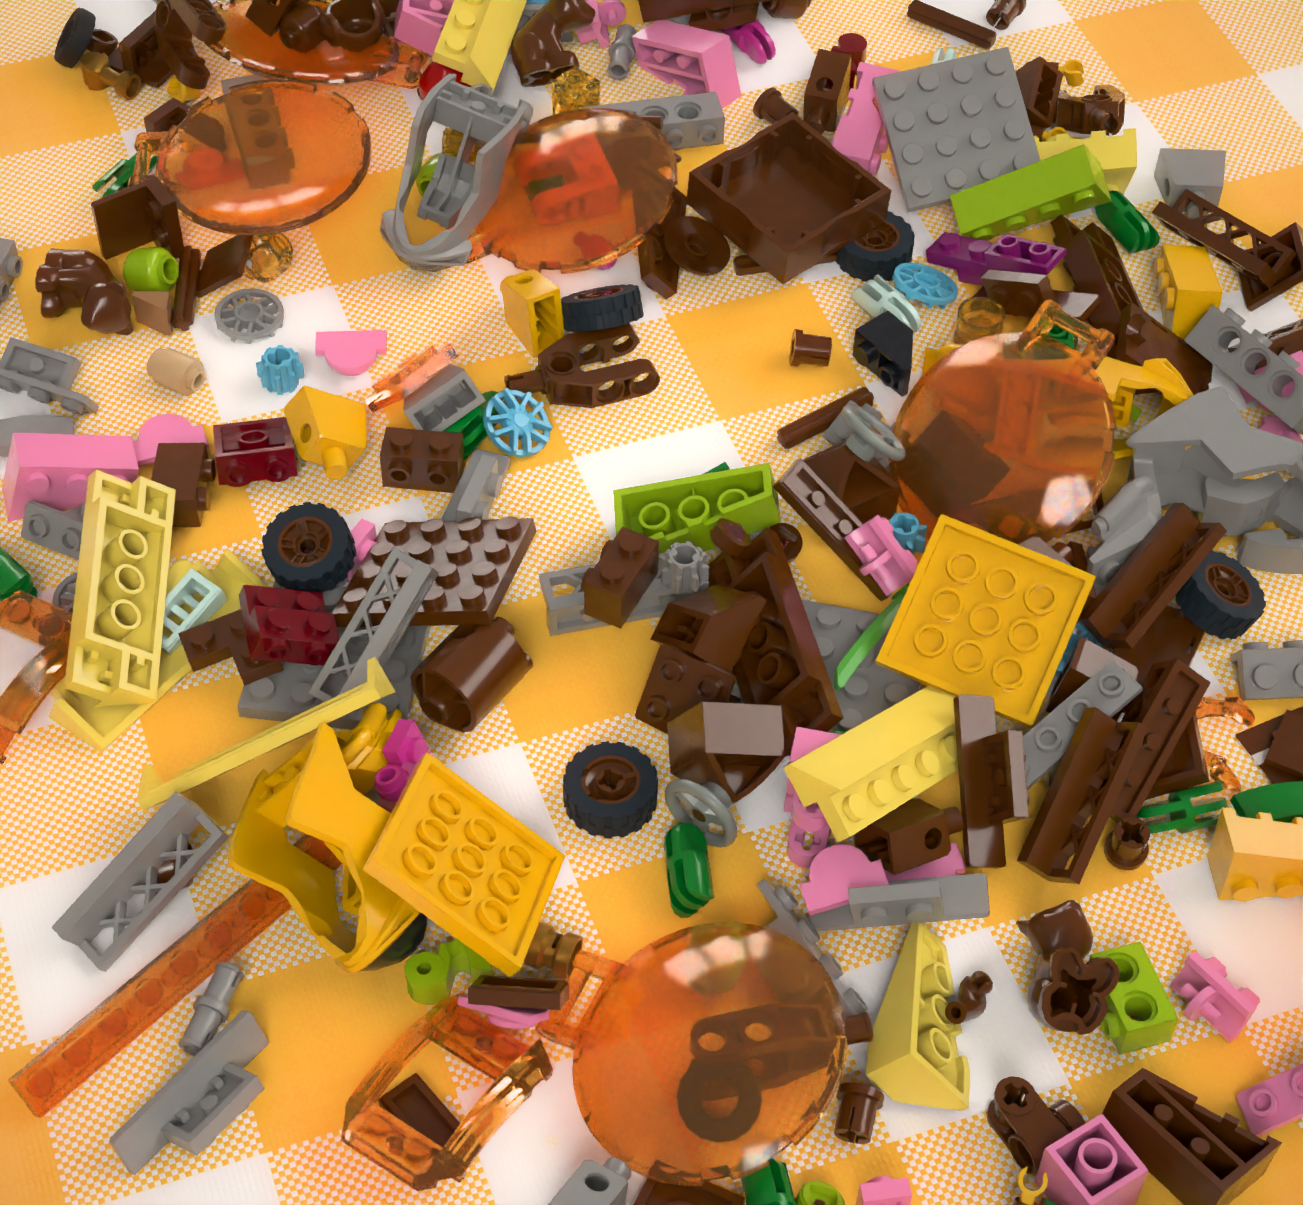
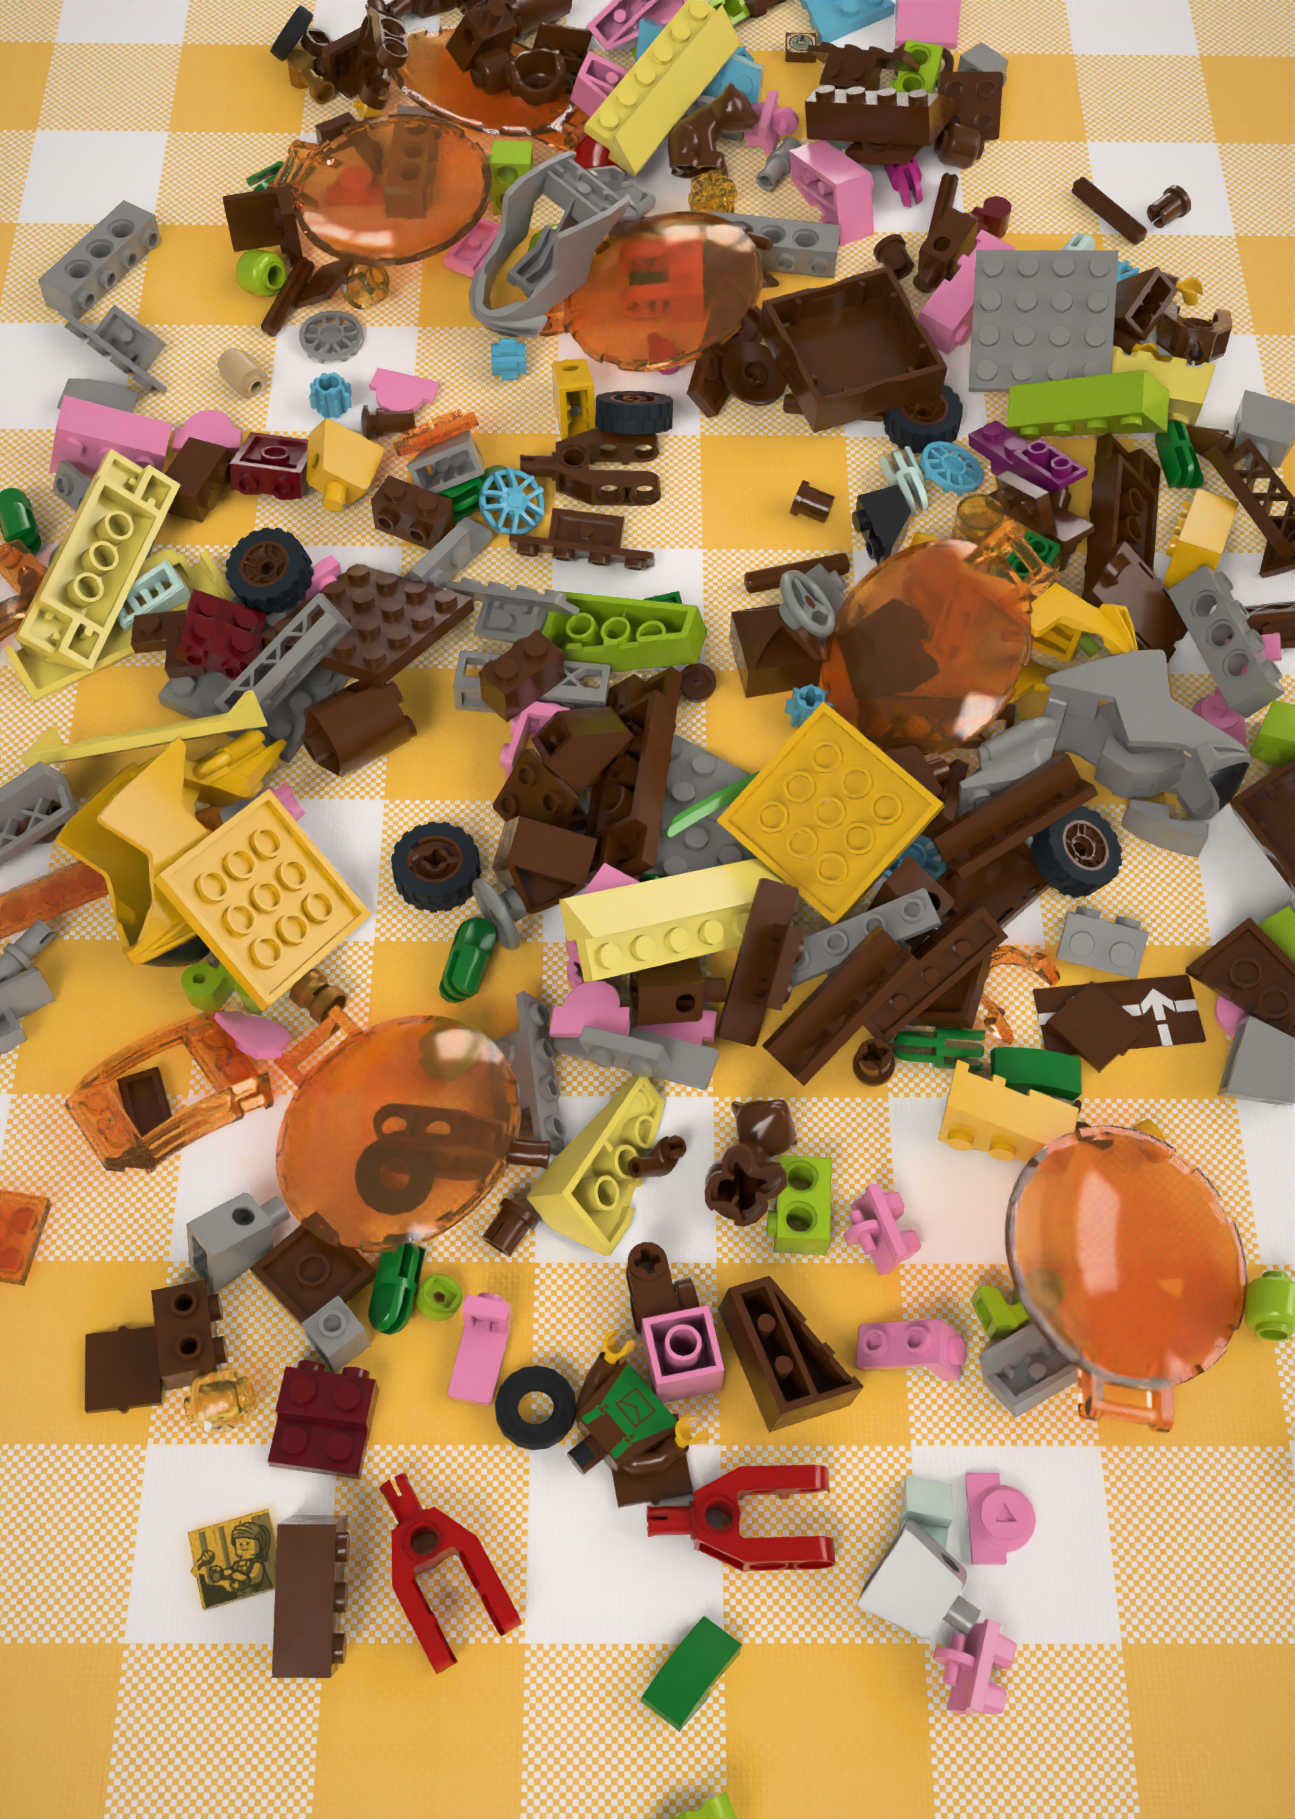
camera: 20 degrees right, 10 degrees up
(83, 280) = (198, 270): reddish brown animal -> none
(154, 310) = (249, 310): medium nougat slope -> none
(345, 382) = (385, 422): none -> reddish brown pin
(369, 200) = (471, 251): none -> bright pink plate
(377, 107) = (508, 163): none -> lime brick
(402, 753) = (258, 777): dark pink plate -> none
(447, 290) = (508, 359): none -> medium azure gear
(519, 992) = (262, 1026): reddish brown tile -> none
(576, 524) = (511, 613): none -> light grey bracket
(605, 437) = (584, 536): none -> reddish brown bracket
(640, 626) = (522, 726): none -> bright pink bracket
(683, 568) = (583, 682): light grey gear -> none
(730, 537) = (637, 666): reddish brown tile -> none
(797, 57) = (945, 198): none -> reddish brown axle
(825, 515) = (743, 684): reddish brown tile -> none
(882, 554) = (770, 718): bright pink hips -> none
(1147, 200) = (1204, 438): none -> reddish brown cone

